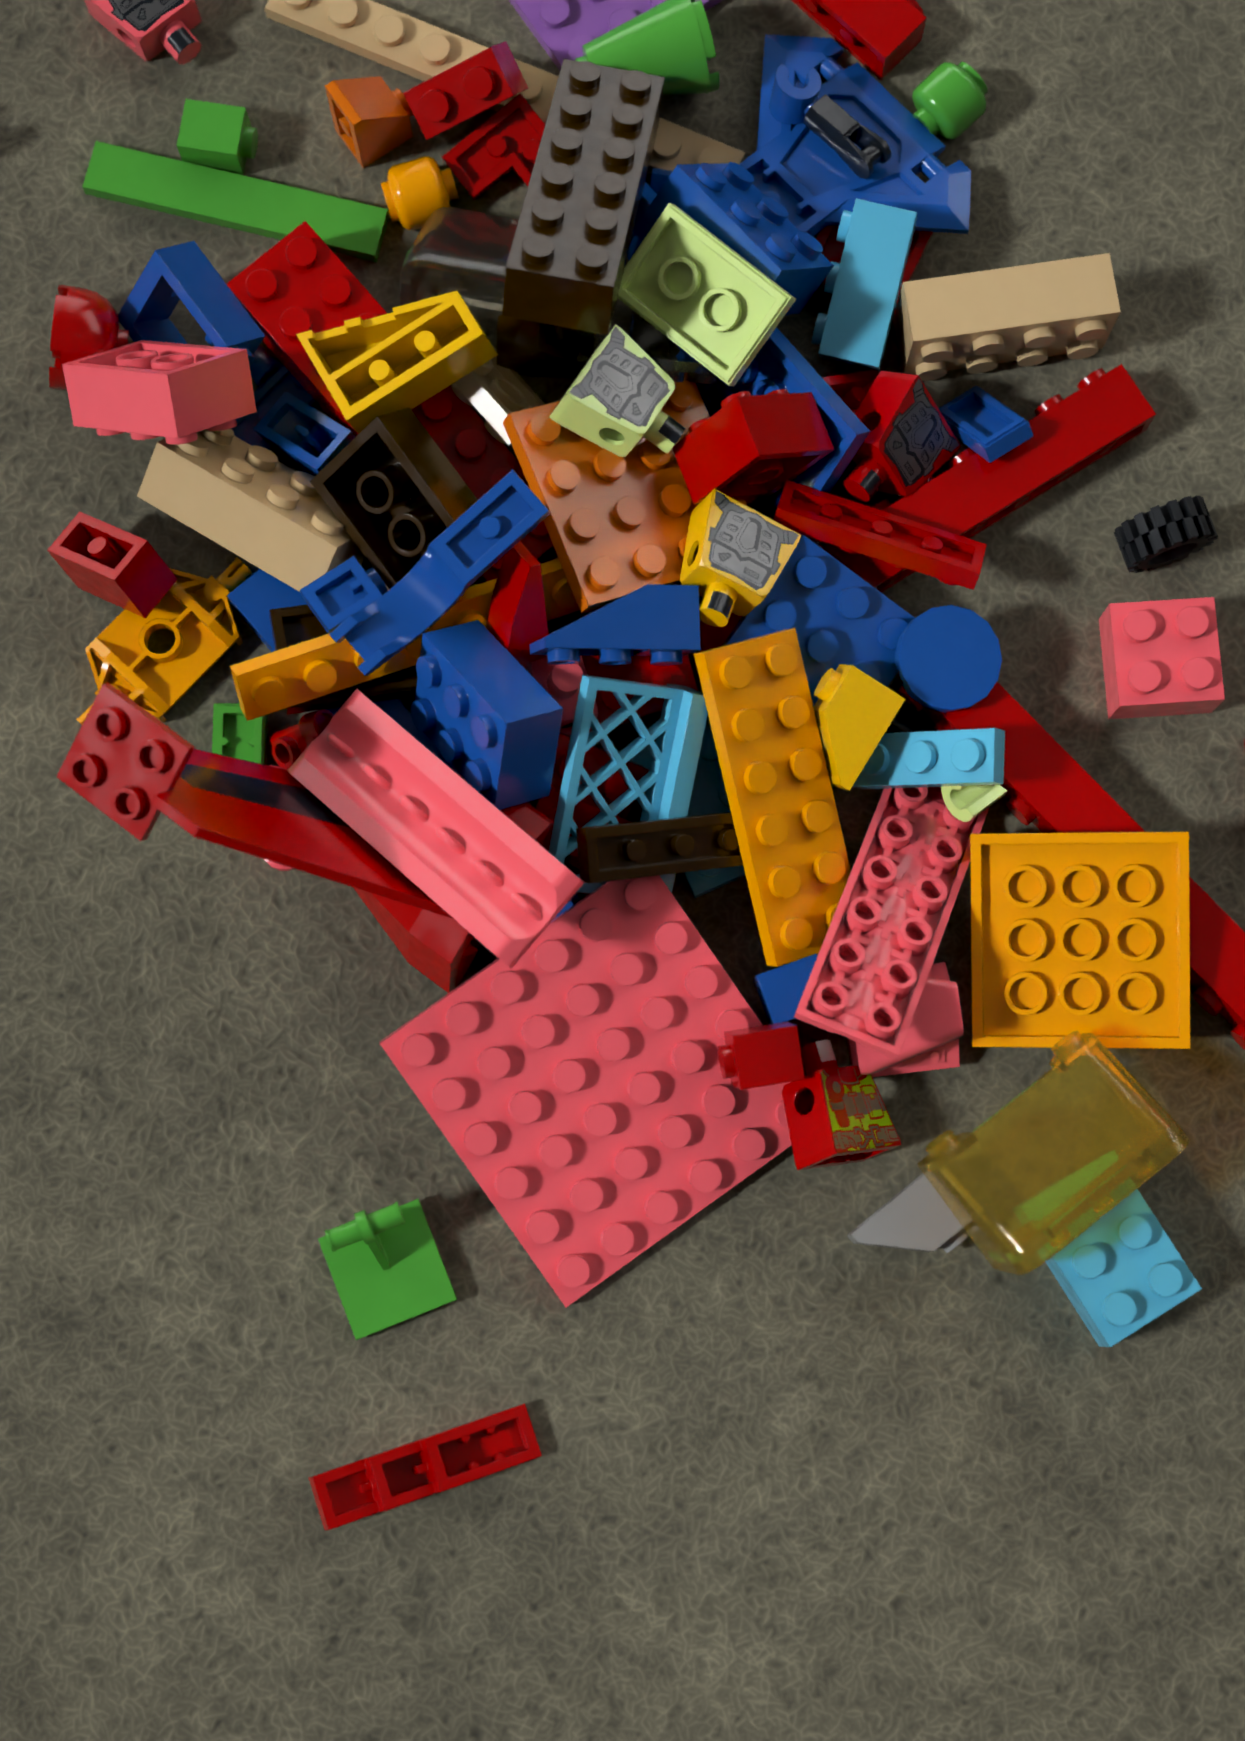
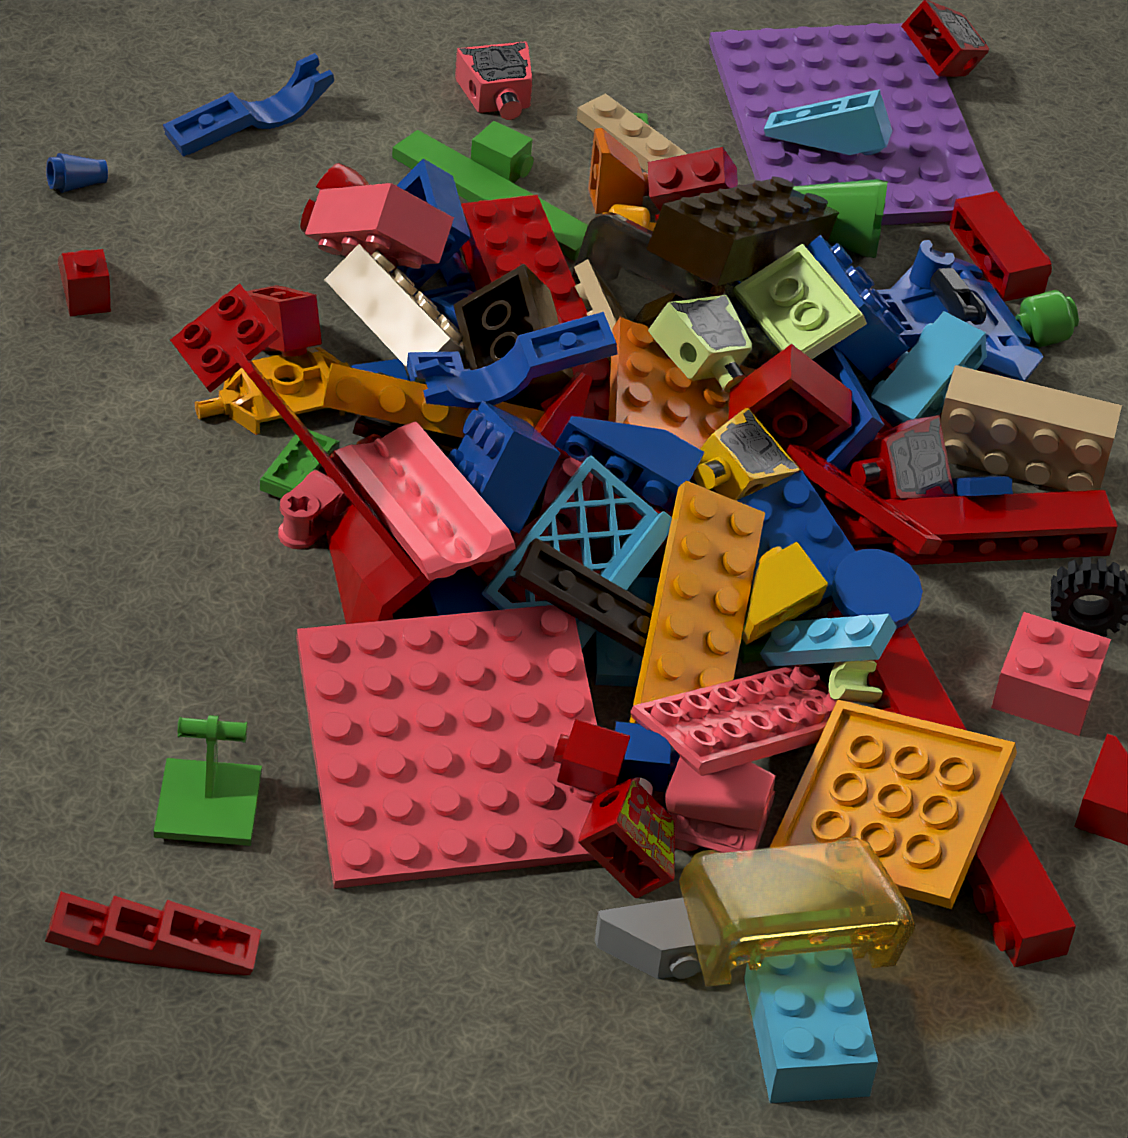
camera: 20 degrees right, 35 degrees down
(398, 356) = (569, 259): yellow wedge -> none

